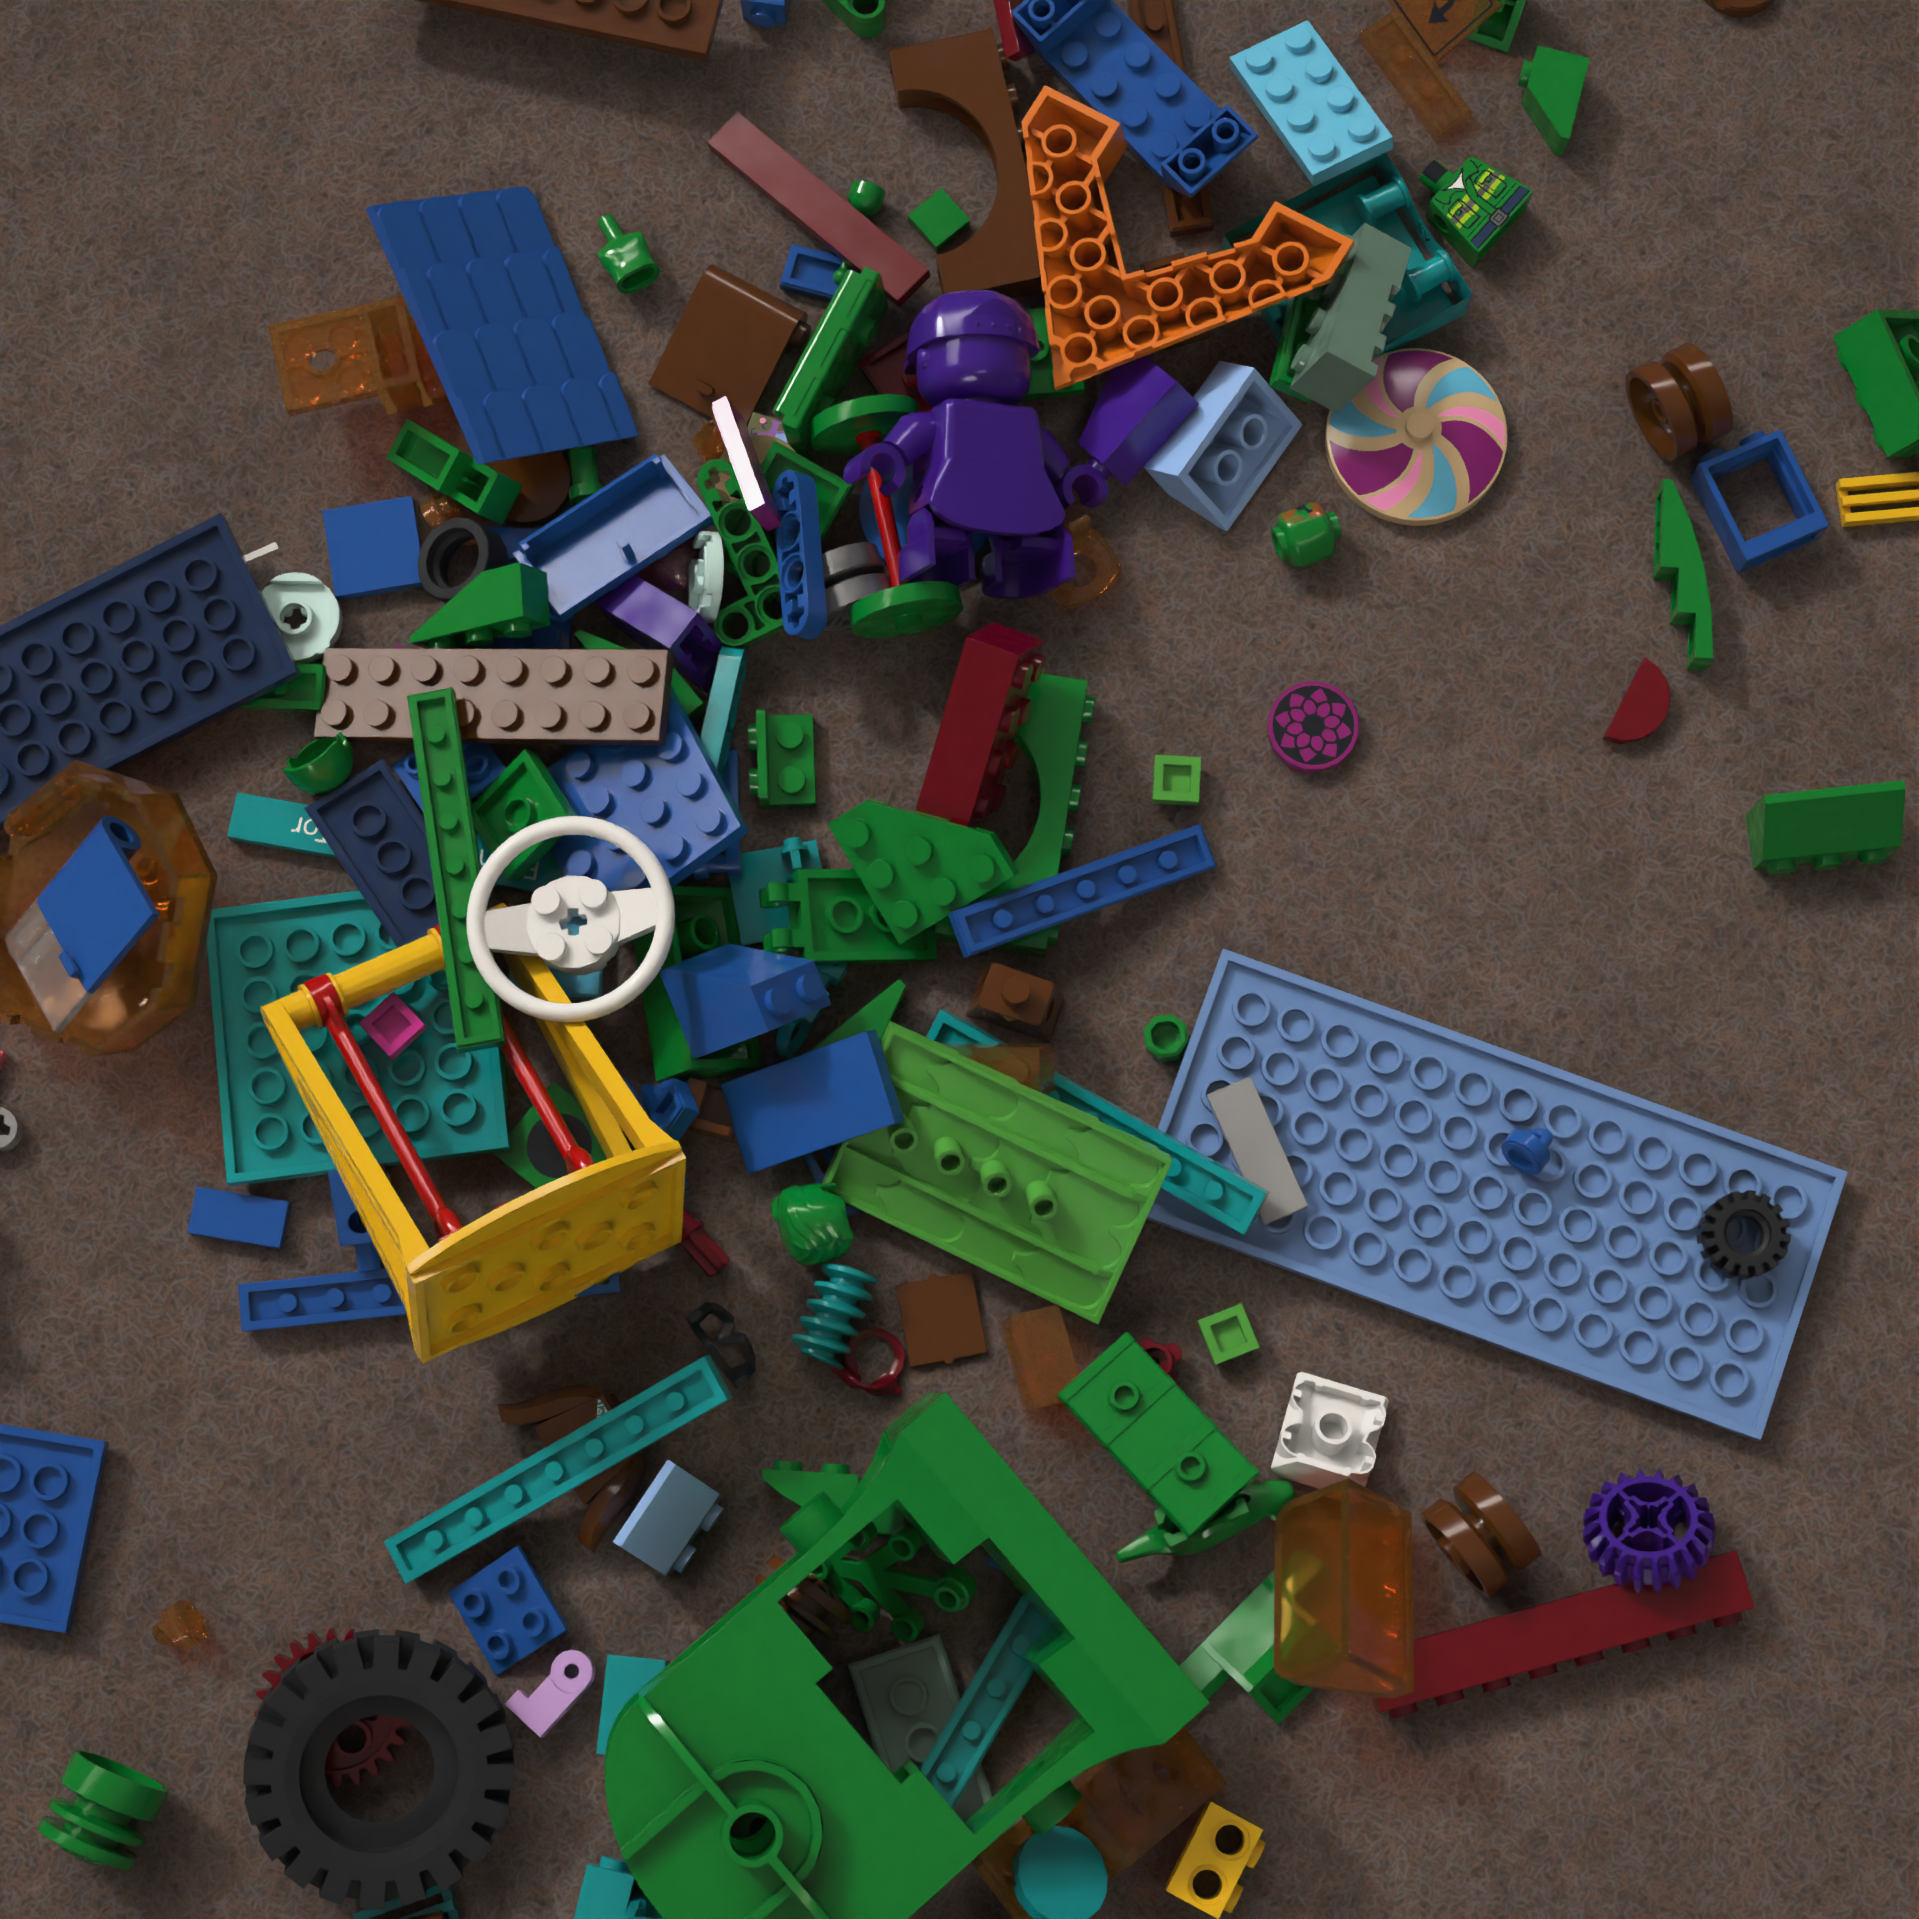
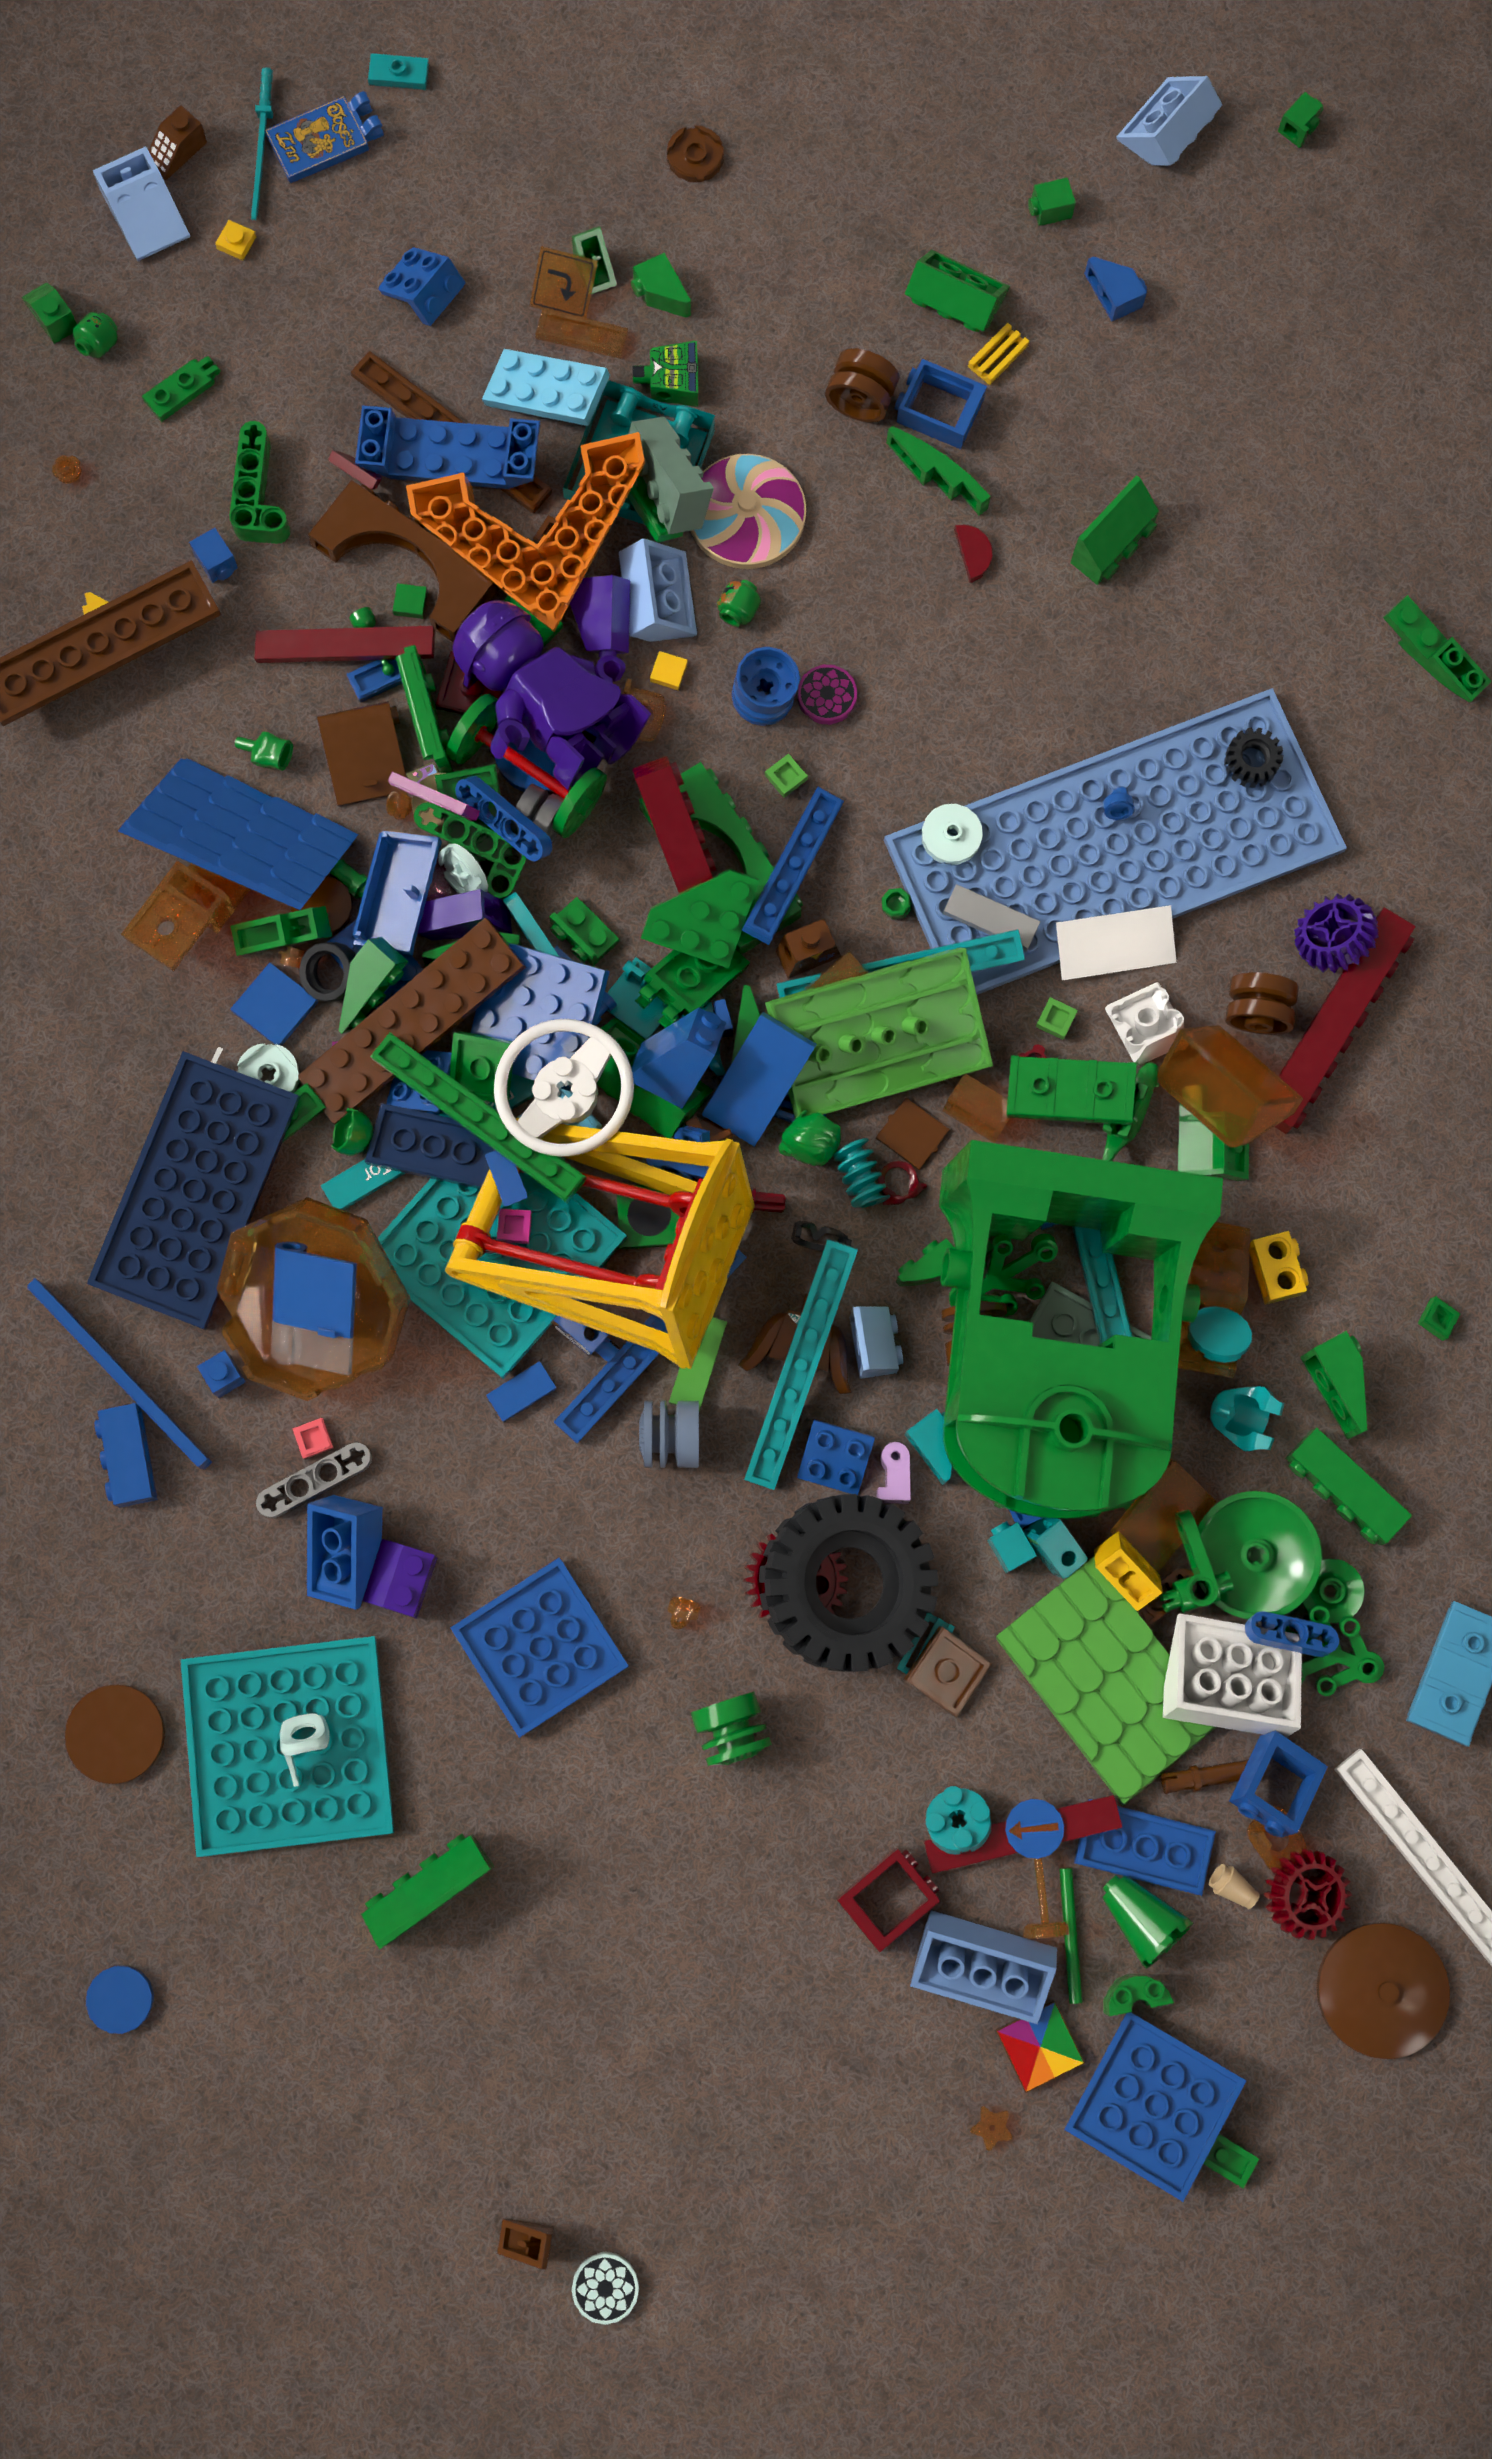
camera: 50 degrees left, 0 degrees up
(338, 1408) = (670, 1434): none -> sand blue wheel
(422, 966) = (506, 1178): none -> blue sticker
(426, 1384) = (693, 1382): none -> bright green tile
(845, 995) = (721, 1010): none -> blue tile
(1156, 545) = (668, 670): none -> yellow tile
(1268, 653) = (771, 671): none -> blue wheel
(1294, 1037) = (951, 848): none -> light aqua plate
(1379, 1308) = (1116, 942): none -> white sticker

